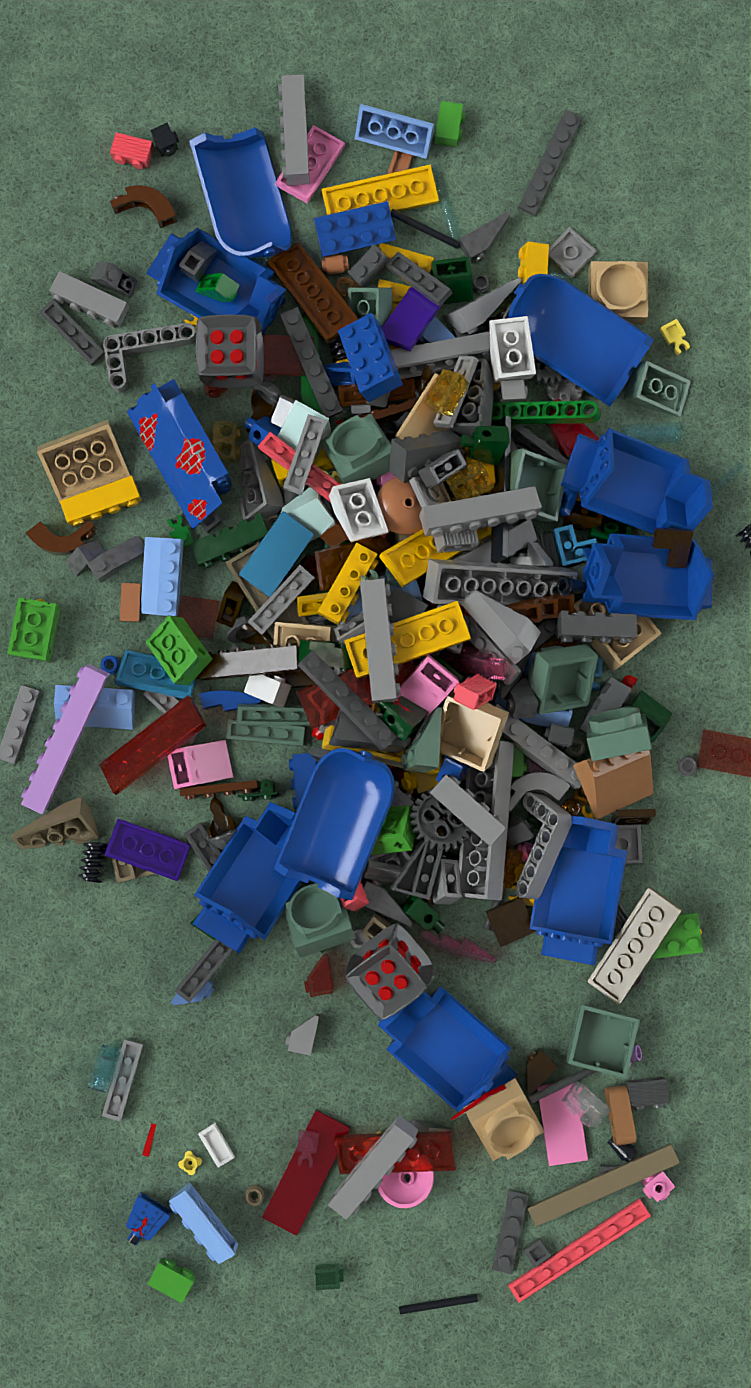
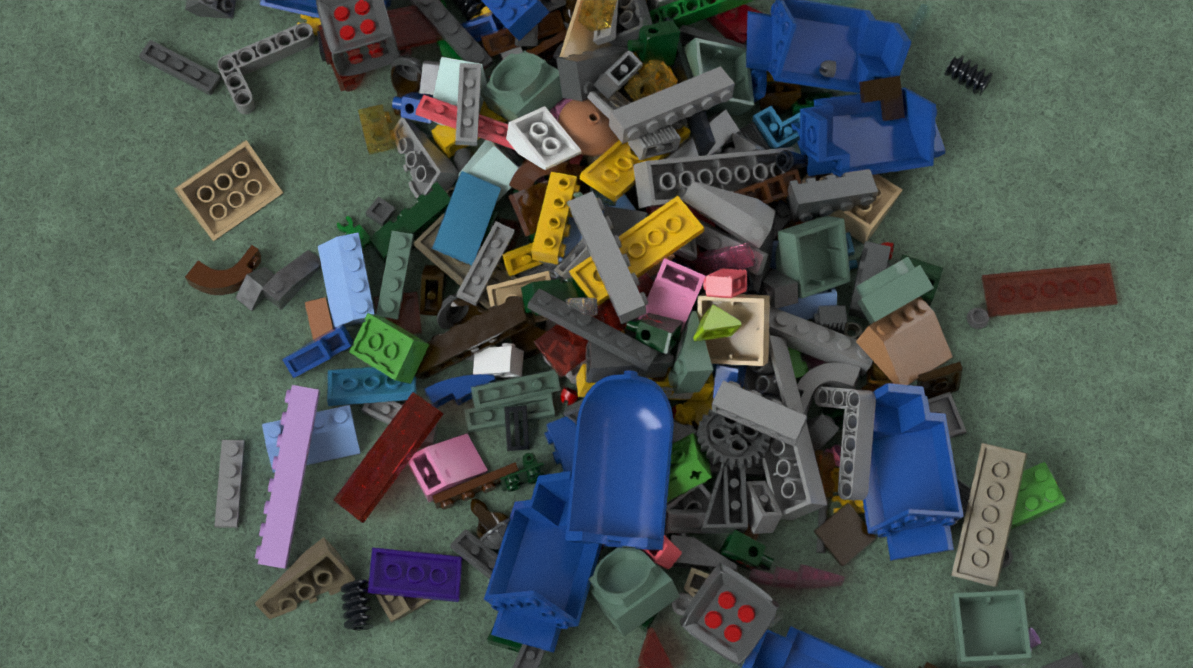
camera: 15 degrees left, 15 degrees down
(34, 629) = (221, 375): bright green piece -> none
(88, 299) = (189, 30): light grey brick -> none
(100, 501) = (258, 223): yellow brick -> none
(106, 660) = (319, 385): blue plate -> none
(121, 631) = (318, 350): none -> blue slope
(181, 451) = (333, 146): blue panel -> none
(202, 584) = (395, 275): none -> sand green plate
(270, 734) = (515, 409): none -> black tile
(347, 678) = (586, 306): none -> clear slope
(453, 726) = (716, 324): none -> lime slope
(633, 505) = (828, 68): none -> dark grey hinge

